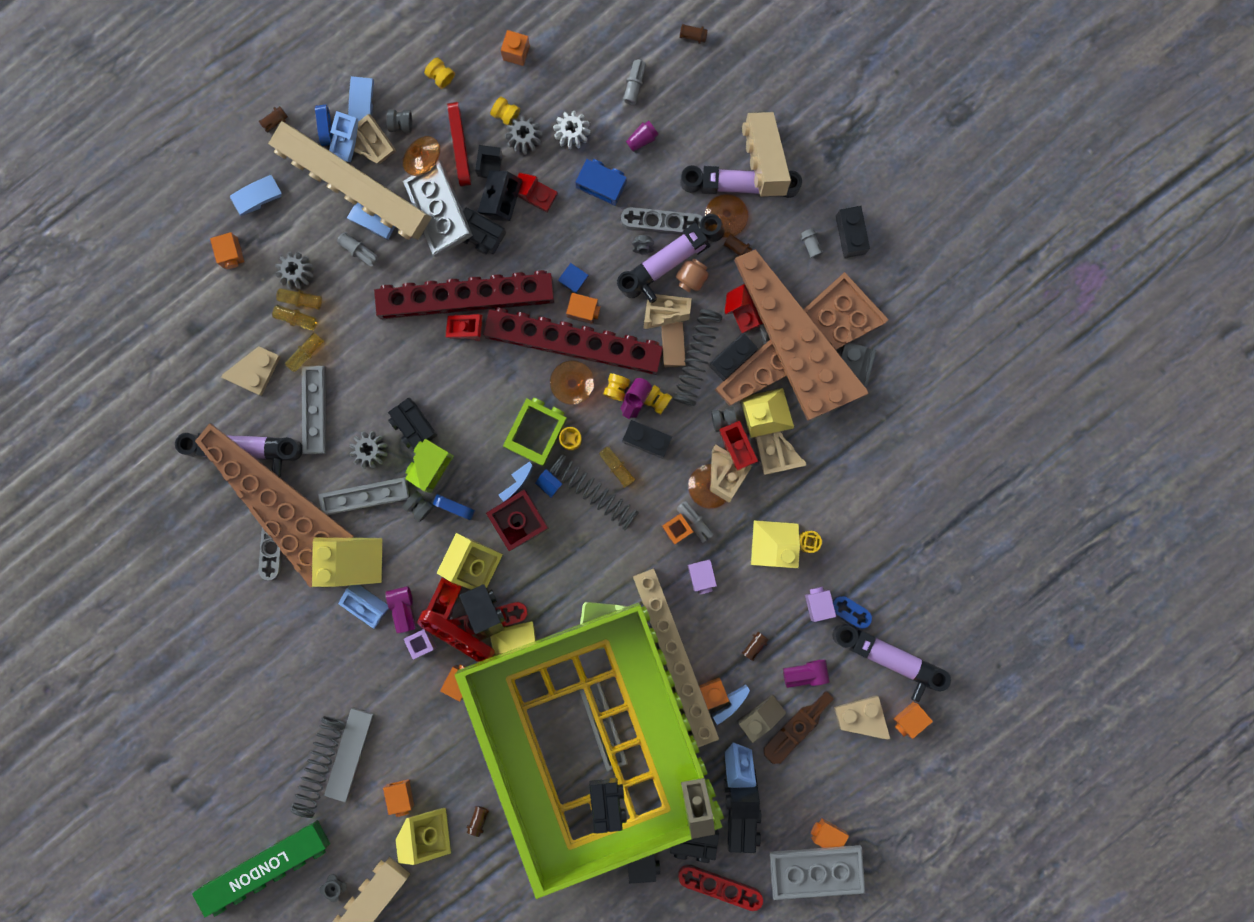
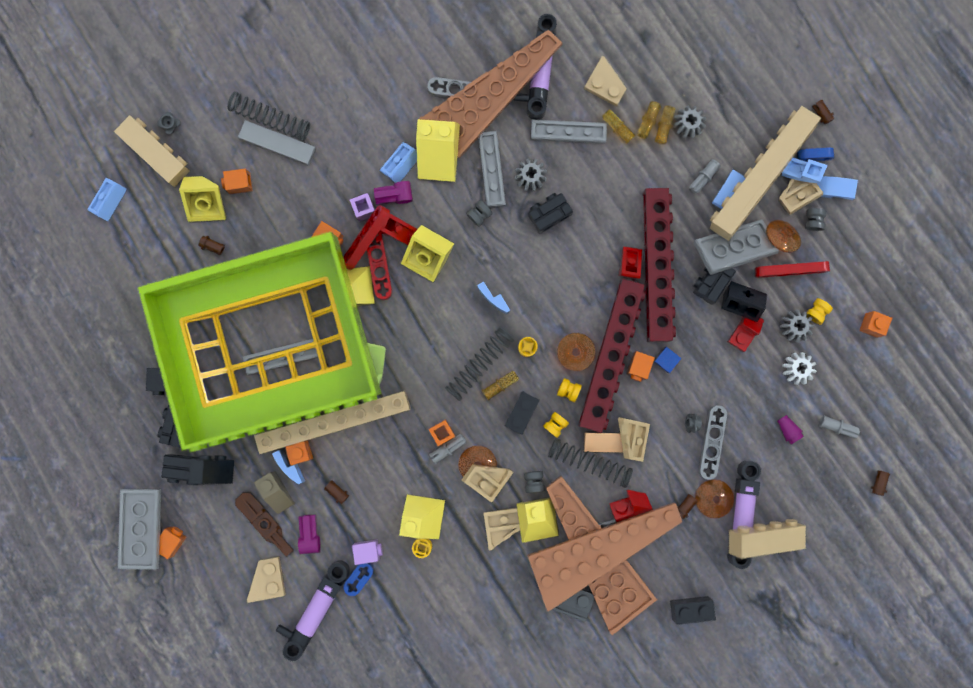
camera: 95 degrees right, 0 degrees up
(227, 250) = (710, 66): orange brick -> none
(255, 194) = (756, 90): light blue slope -> none
(261, 868) = (190, 66): green brick -> none
(428, 465) = (513, 223): lime slope -> none
(438, 72) = (856, 257): yellow wheel -> none
(453, 507) = (476, 243): blue beam -> none
(482, 612) = (384, 260): black brick -> none
(488, 159) = (776, 293): black panel -> none
(517, 520) = (460, 296): dark red slope -> none
(525, 452) = (511, 320): lime window -> none
(548, 483) = (490, 325): blue tile -> none
(601, 181) = (751, 390): blue piece -> none
(605, 805) = (208, 352): black brick -> none
(635, 398) = (558, 405): magenta piece -> none
(691, 242) = (692, 466): piece -> none
(692, 275) = (663, 464): nougat head -> none
(698, 808) = (199, 430): dark tan slope -> none
(702, 576) = (399, 451): lavender brick -> none
(719, 890) = (133, 443): red beam -> none
(733, 356) = (588, 494): black brick -> none
(738, 445) = (510, 491): red slope -> none
(739, 767) = (234, 470): light blue slope -> none
(811, 242) = (685, 572): light grey pin -> none
(912, 720) = (260, 623): orange brick -> none

